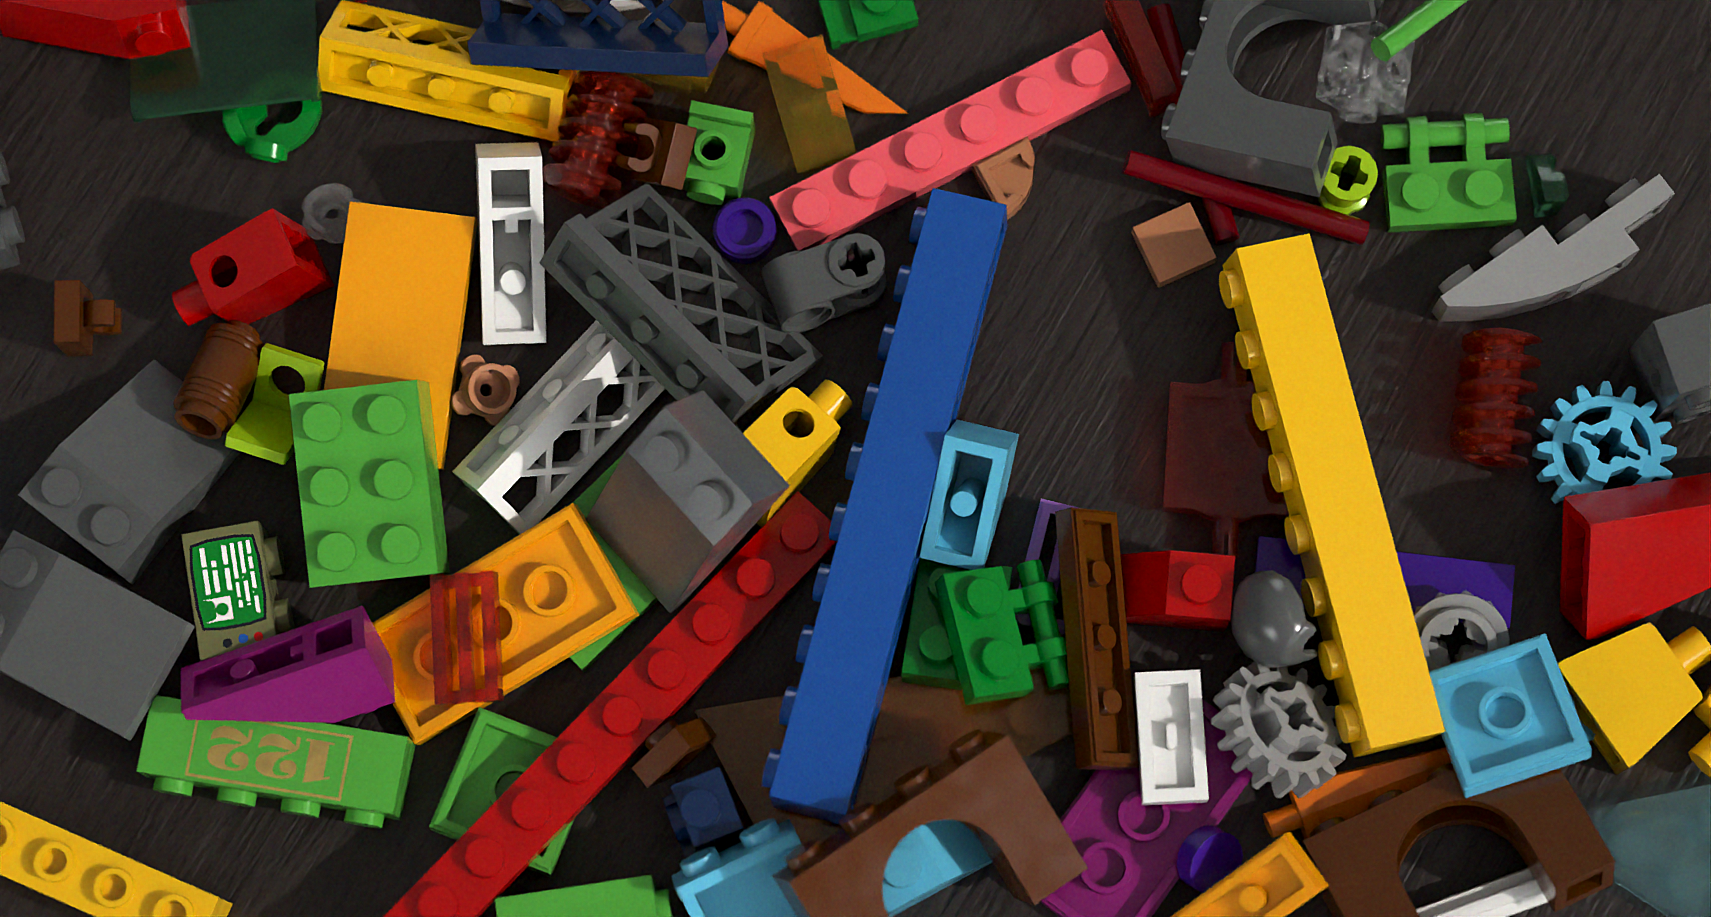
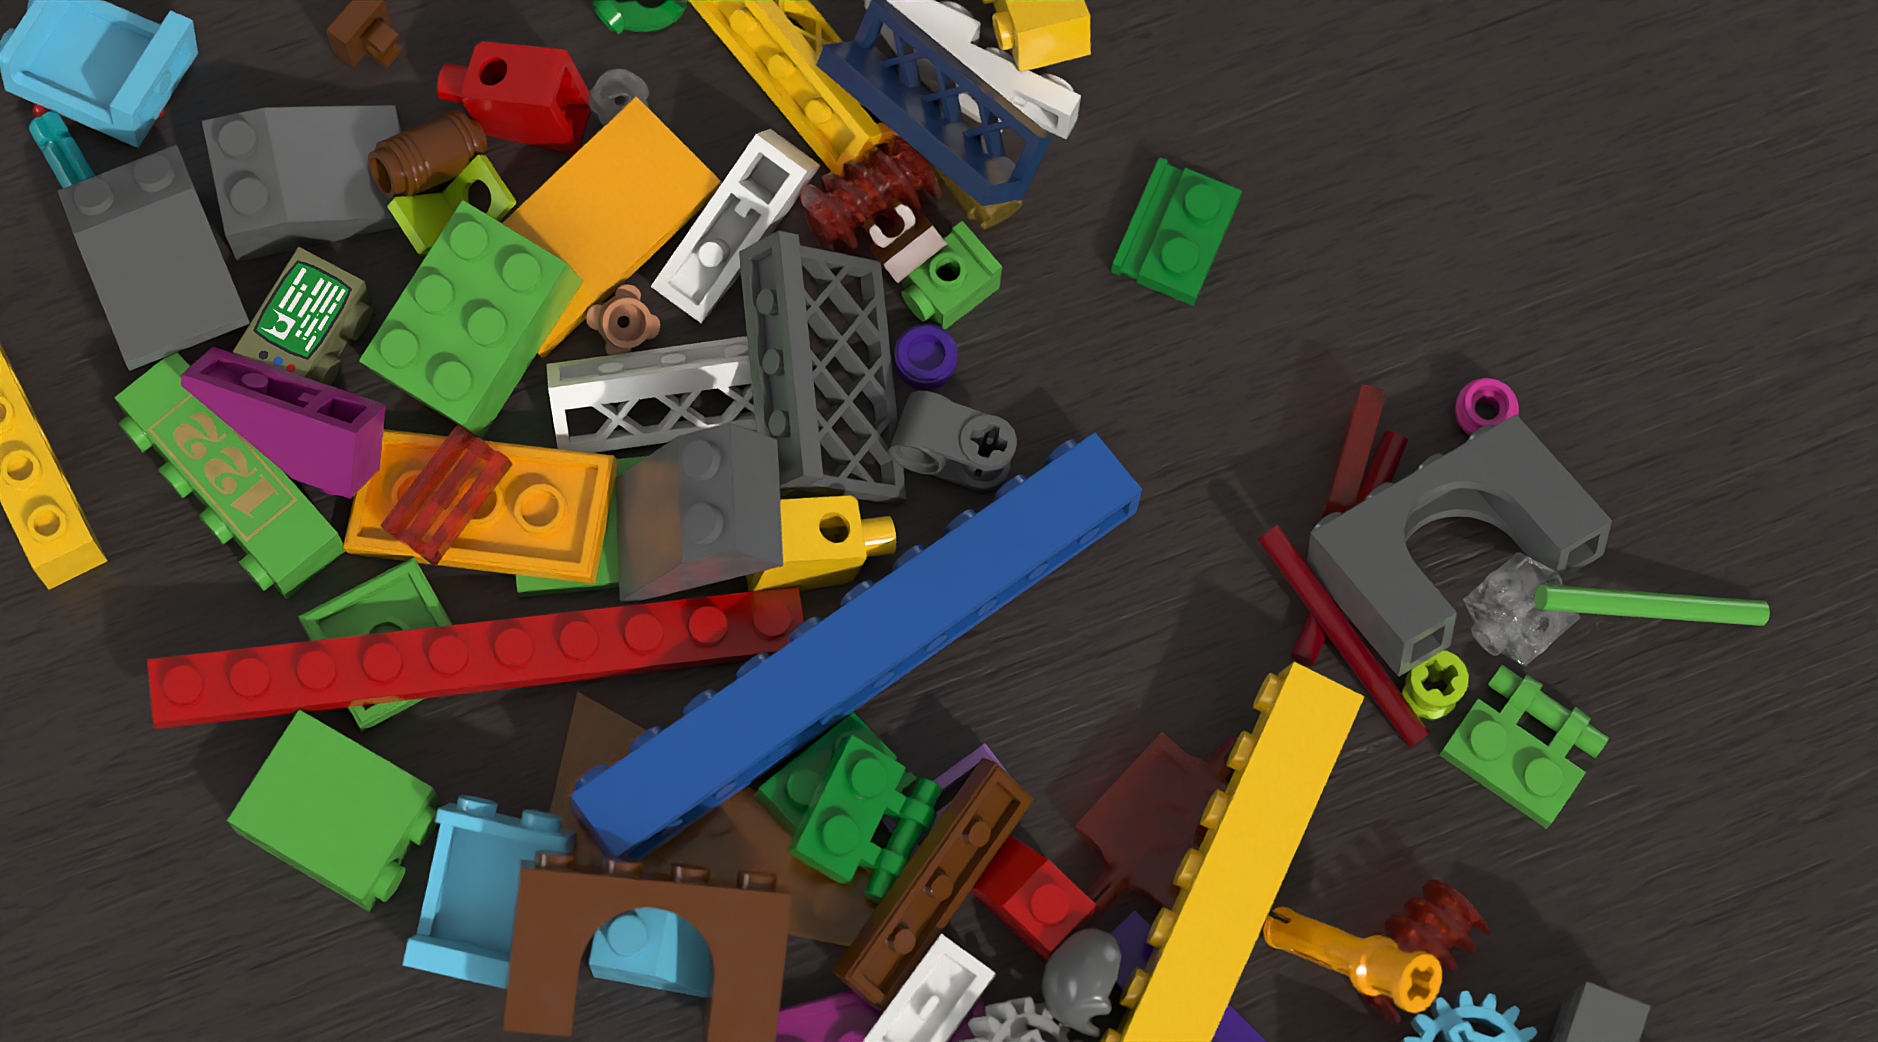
camera: 30 degrees right, 5 degrees down
(672, 750) = (532, 708): reddish brown plate -> none
(703, 812) = (517, 773): dark blue brick -> none
(767, 31) = (1071, 242): orange bar -> none
(809, 104) = (1054, 297): clear yellow slope -> none
(950, 142) = (1146, 414): coral plate -> none
(968, 494) = (928, 691): medium azure slope -> none
(1007, 175) = (1168, 474): nougat tile -> none
(1173, 245) = (1256, 629): nougat tile -> none
(1480, 435) = (1371, 962): none -> light orange pin
(1540, 272) = (1531, 878): light grey slope -> none
(1547, 187) = (1598, 816): clear green tile -> none

